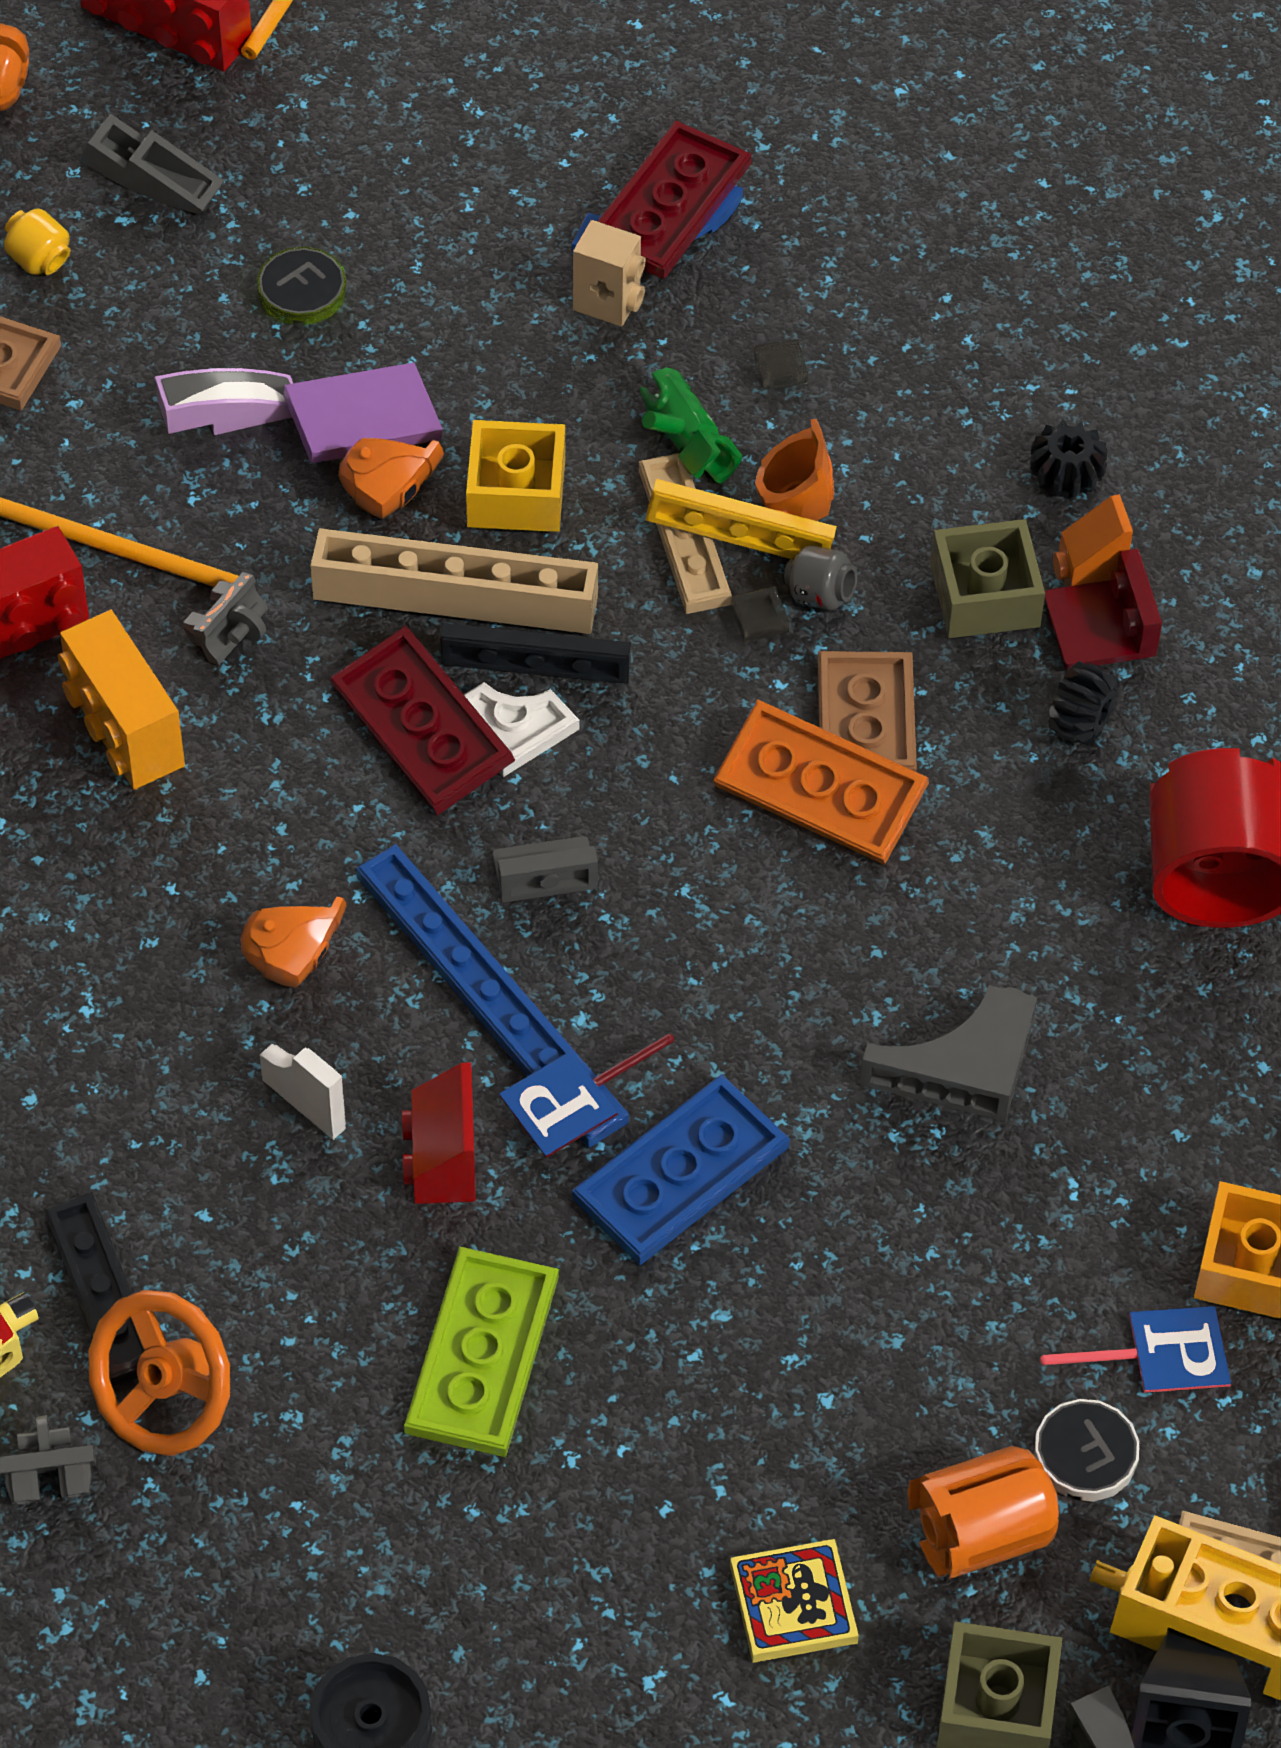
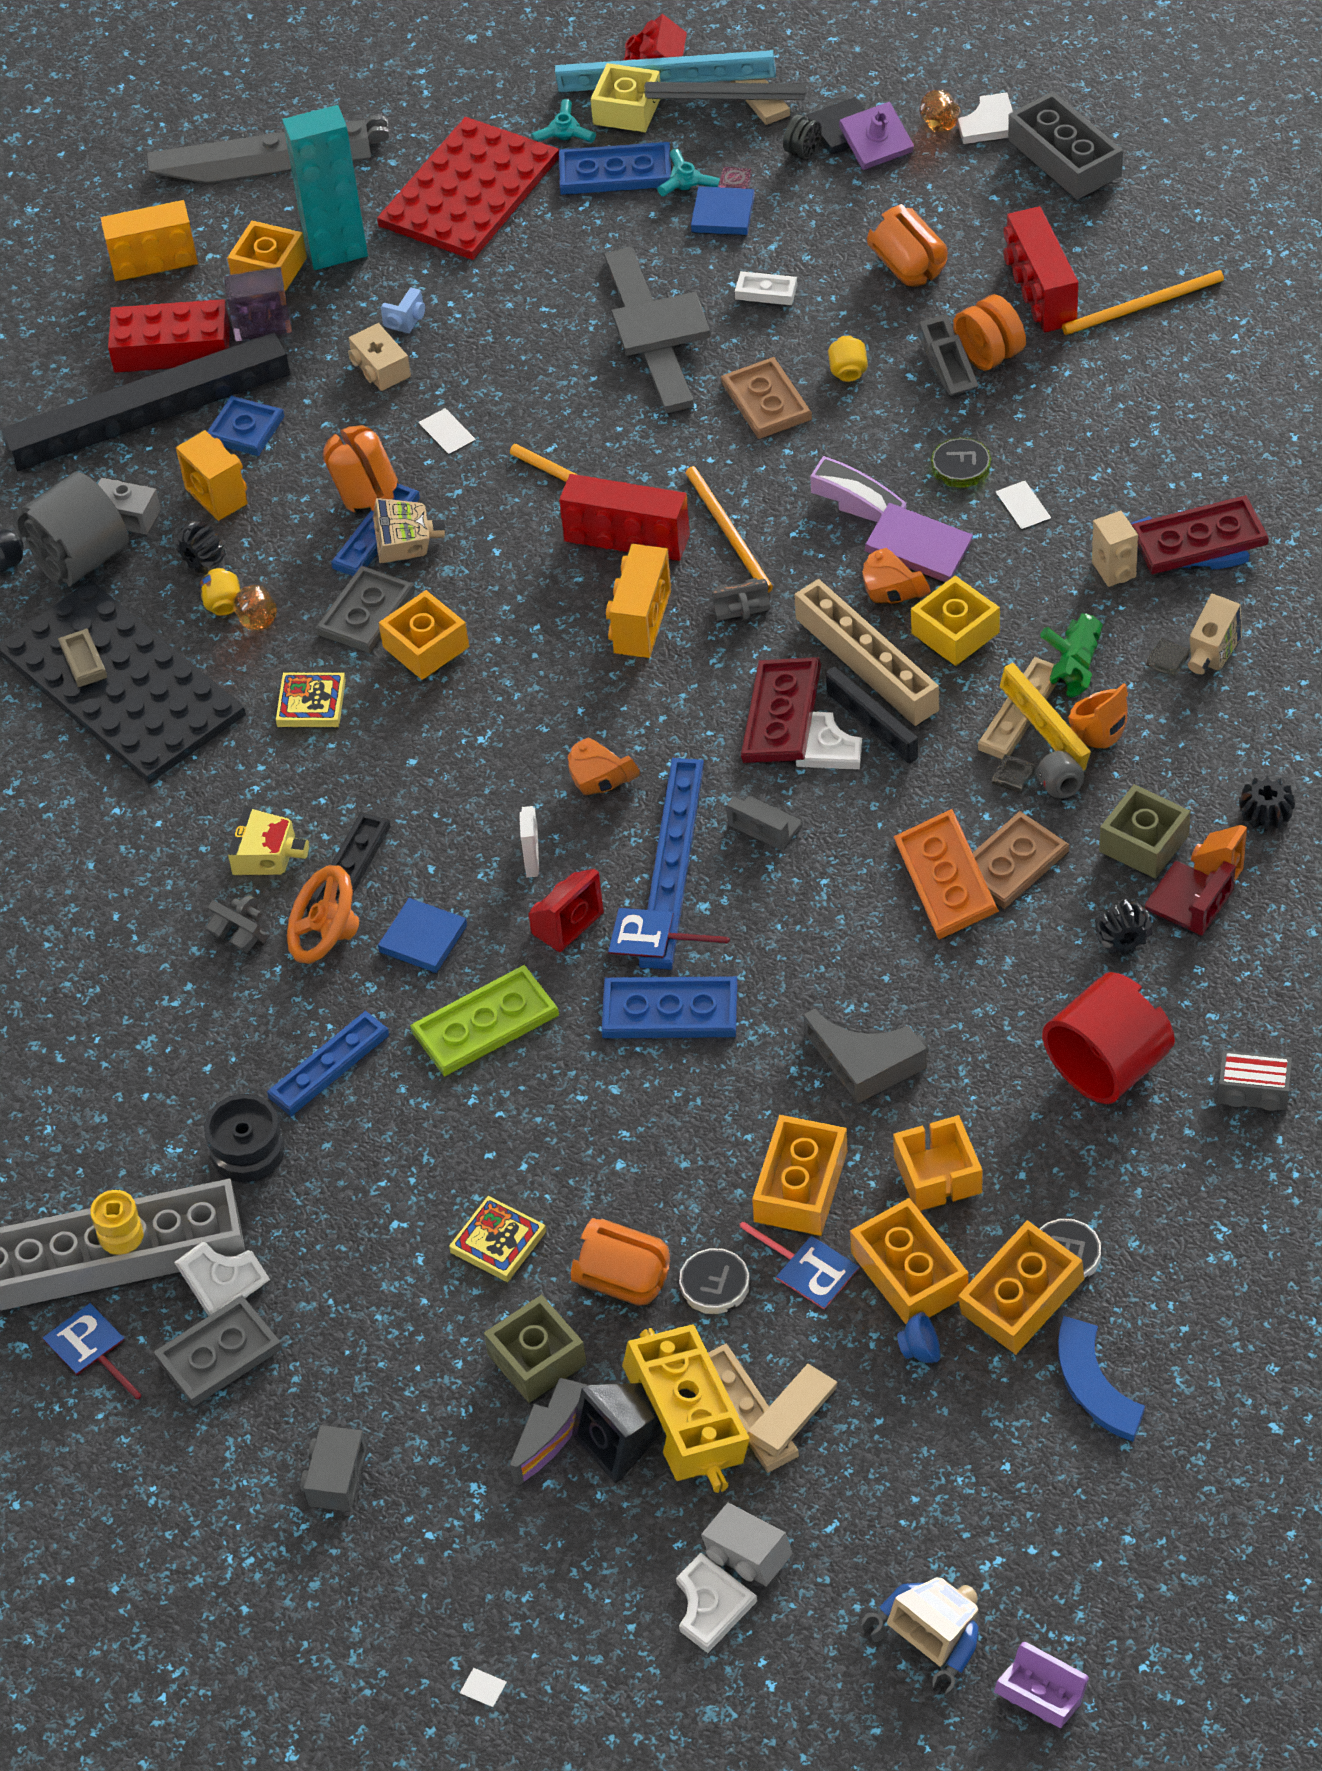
camera: 50 degrees right, 5 degrees down
(187, 102) = (990, 332): none -> orange wheel
(291, 1304) = (422, 935): none -> blue tile
(351, 1552) = (328, 1063): none -> blue tile
(423, 291) = (1023, 504): none -> white sticker
(818, 302) = (1215, 634): none -> tan torso
(1059, 1250) = (800, 1175): none -> light orange brick
(1191, 1121) = (944, 1169): none -> light orange piece

